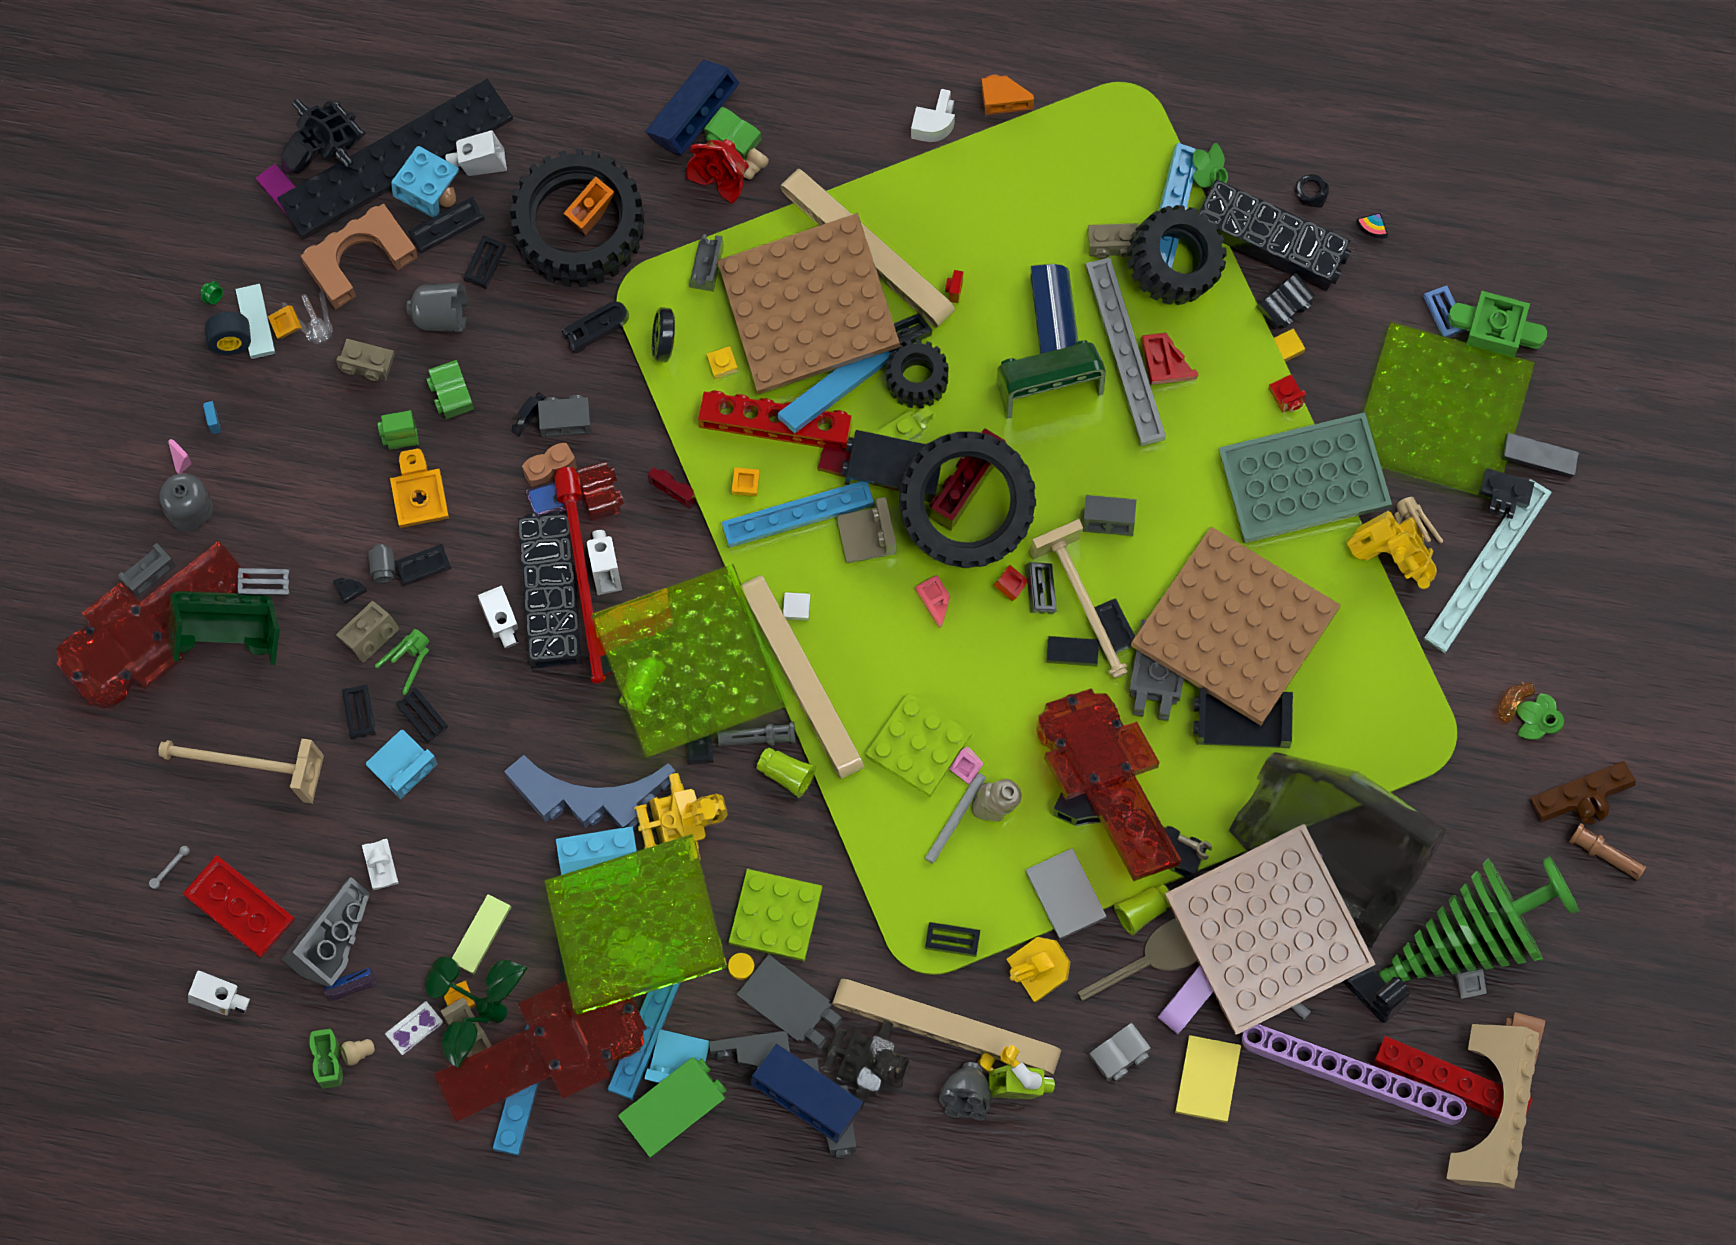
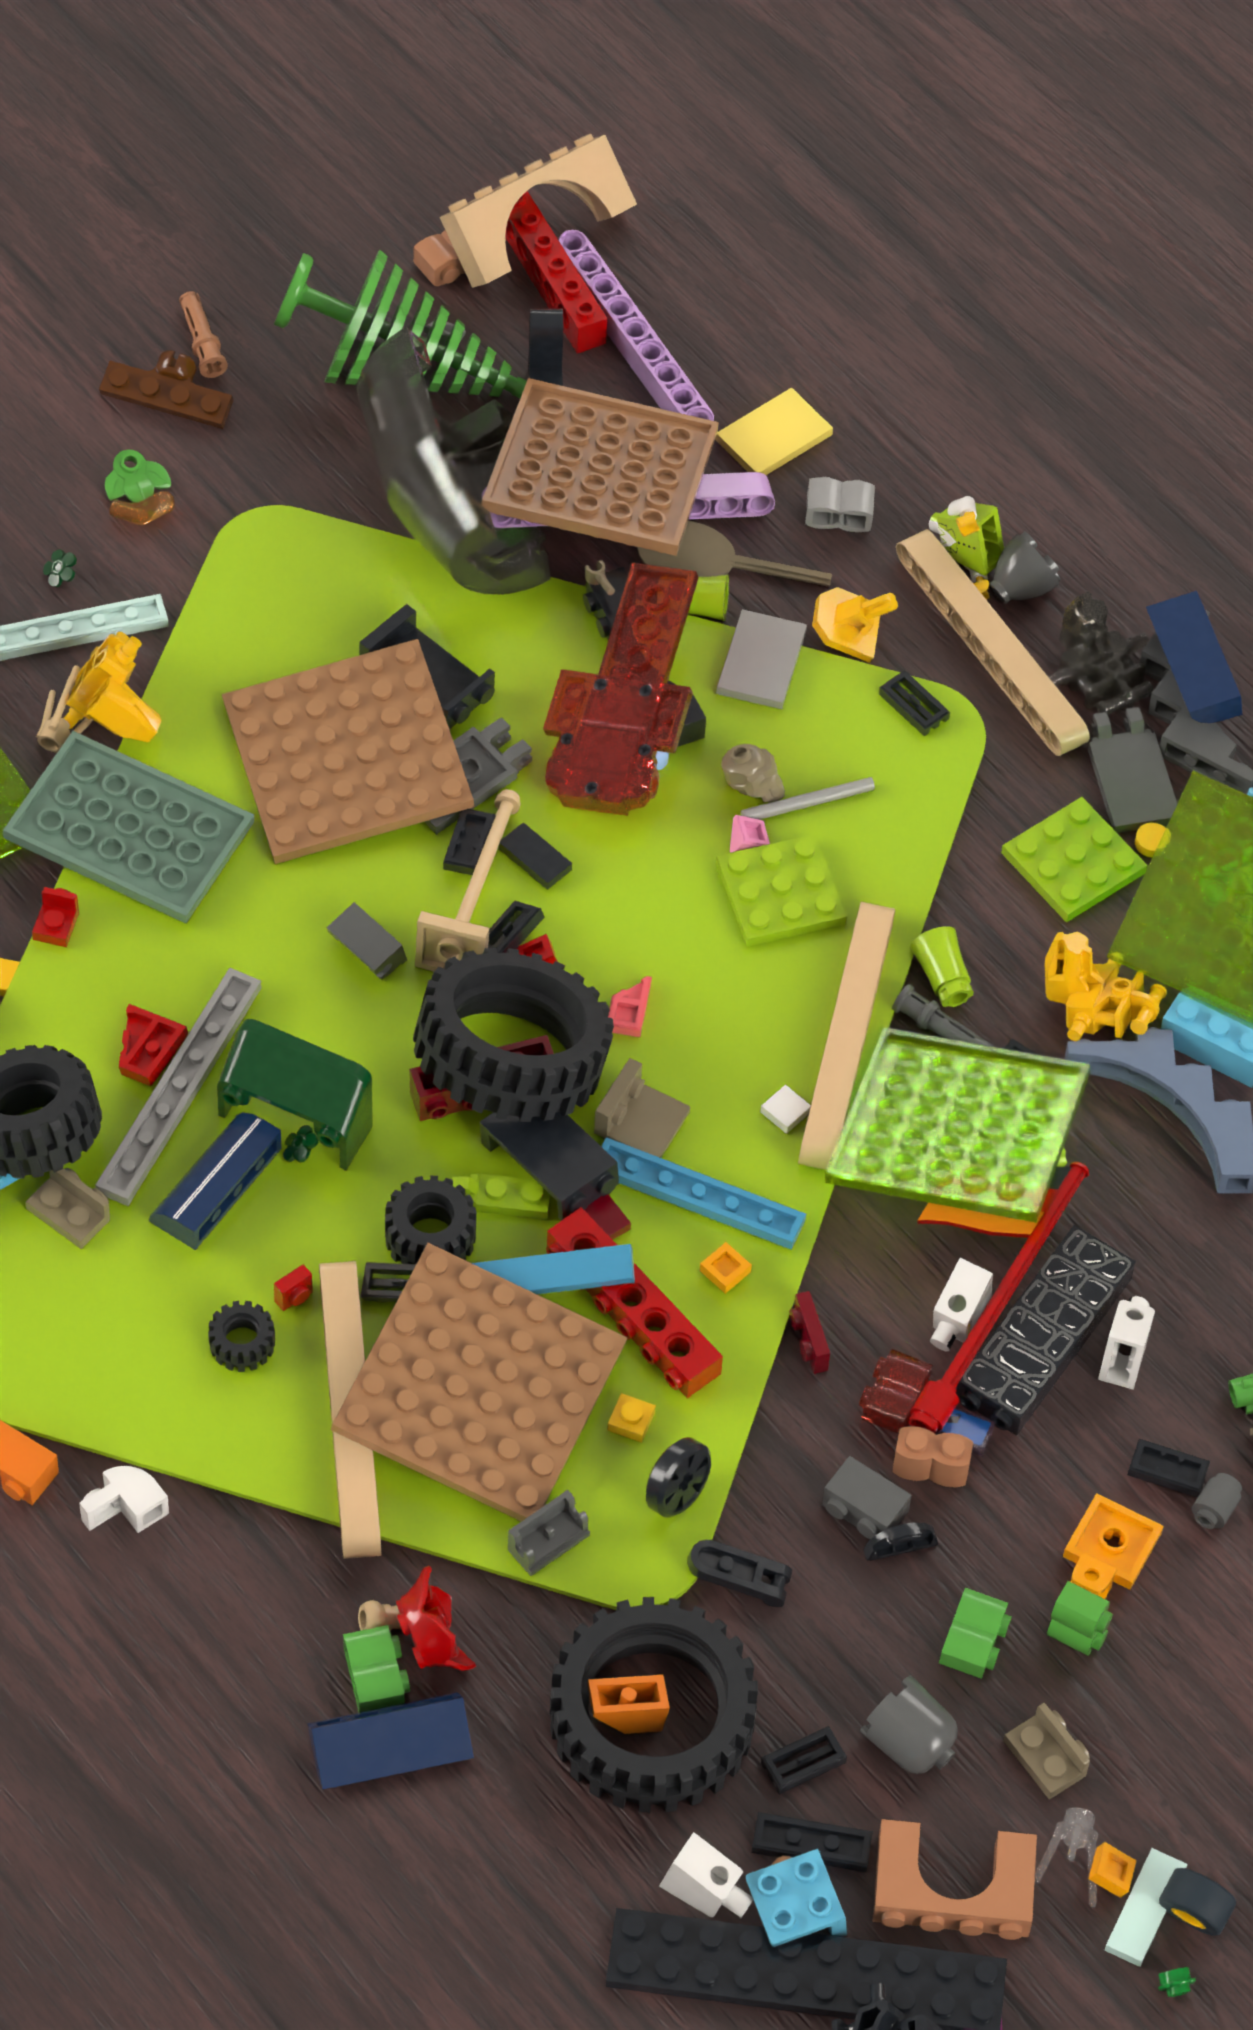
camera: 145 degrees left, 15 degrees down
(957, 228) = (241, 1354): none -> black tyre
(1517, 620) = (60, 568): none -> dark green plant

